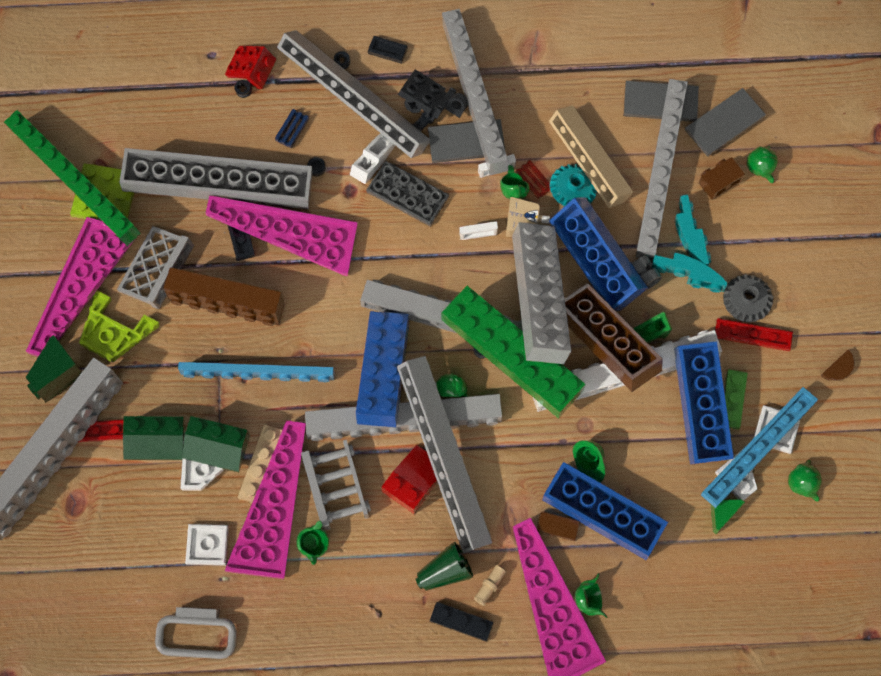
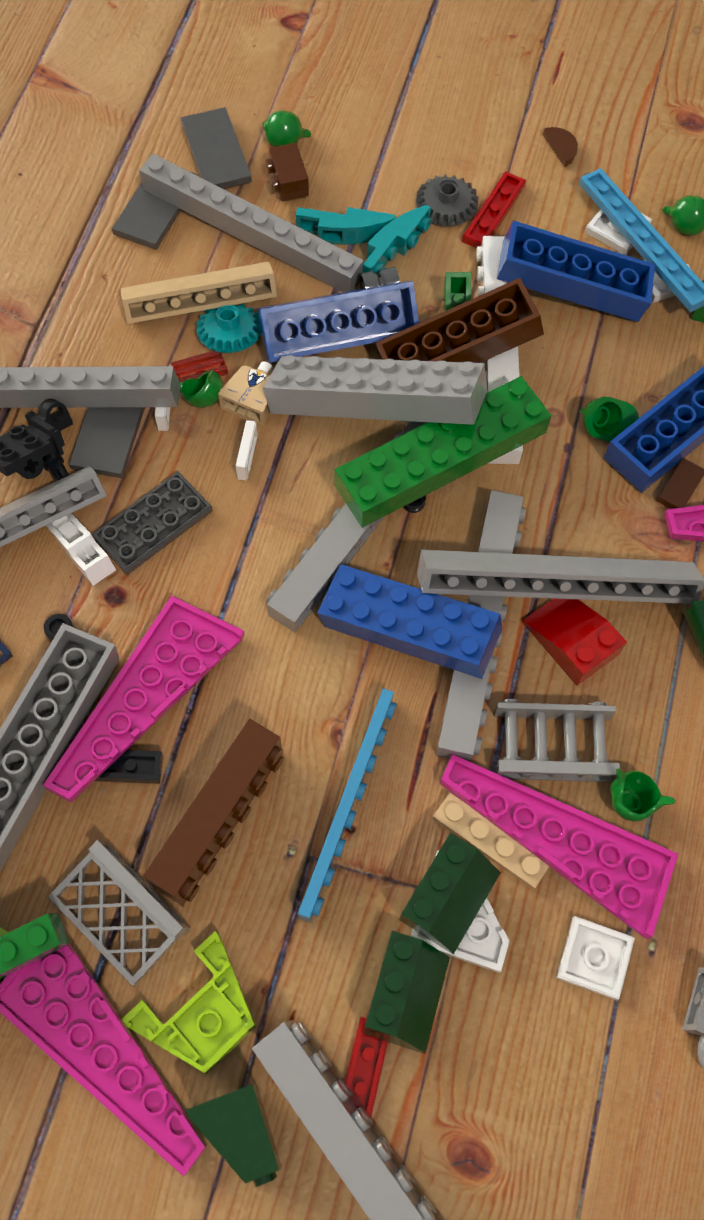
camera: 75 degrees left, 5 degrees down
(451, 386) = (460, 540): green hair -> none

